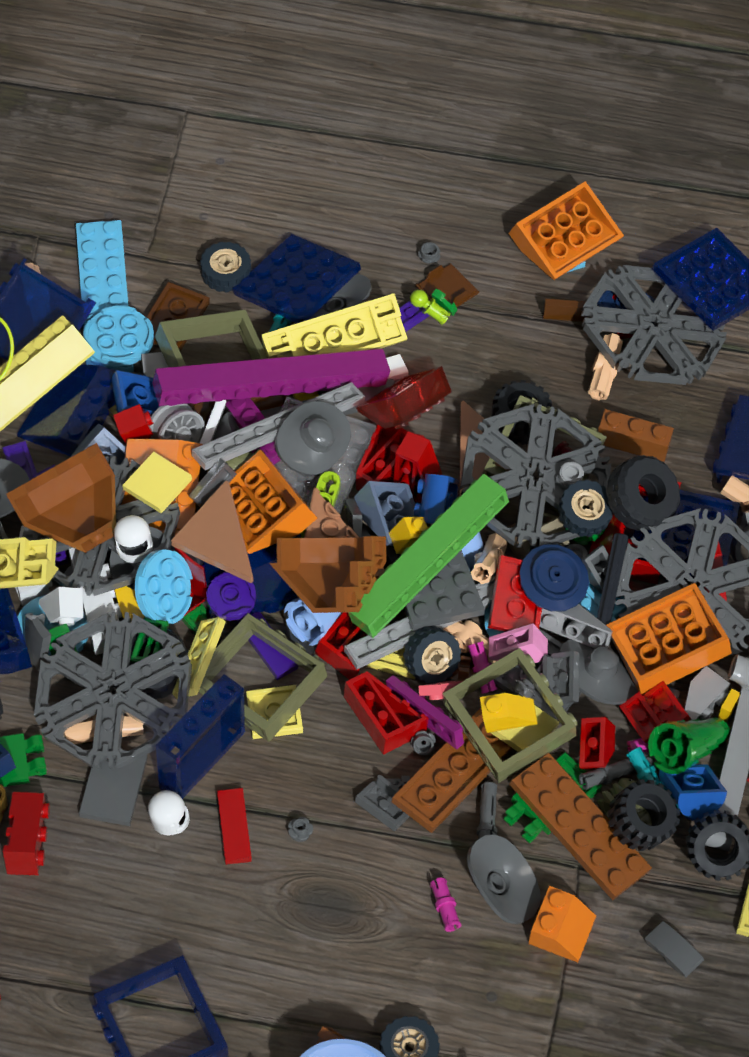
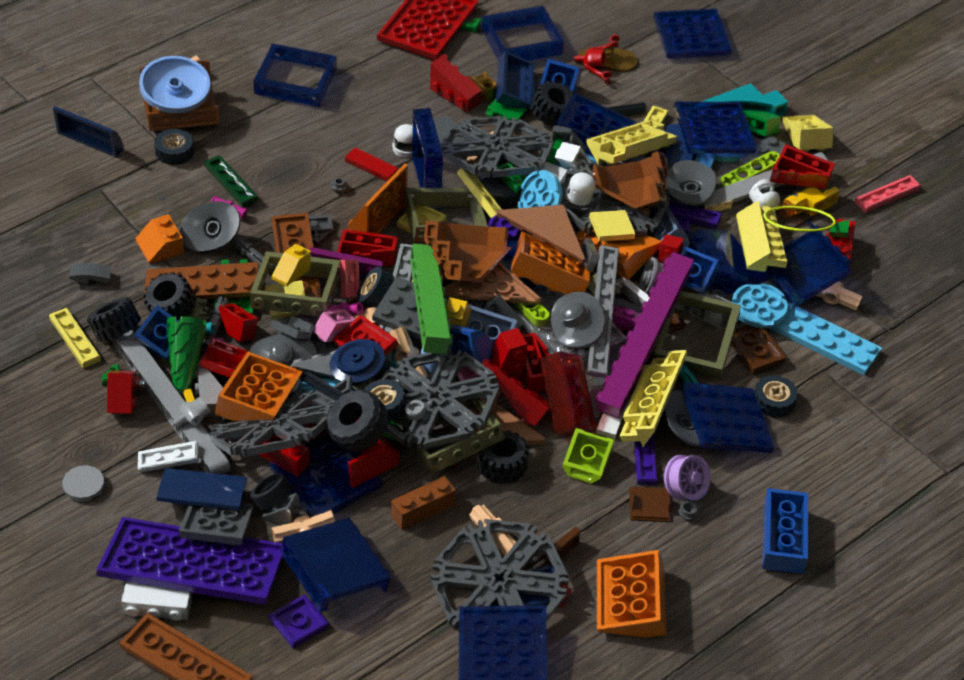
camera: 130 degrees right, 10 degrees down
(312, 738) = (383, 205): none -> orange slope
(388, 169) = (785, 531): none -> blue brick
(404, 939) = (231, 181): none -> dark green plate
(407, 260) = (687, 477): none -> lavender wheel
(420, 299) = (645, 463): lime pin -> none
(440, 300) = (634, 481): green tile -> none
(446, 432) = (525, 402): none -> red wedge
(447, 349) = (587, 456): none -> lime slope

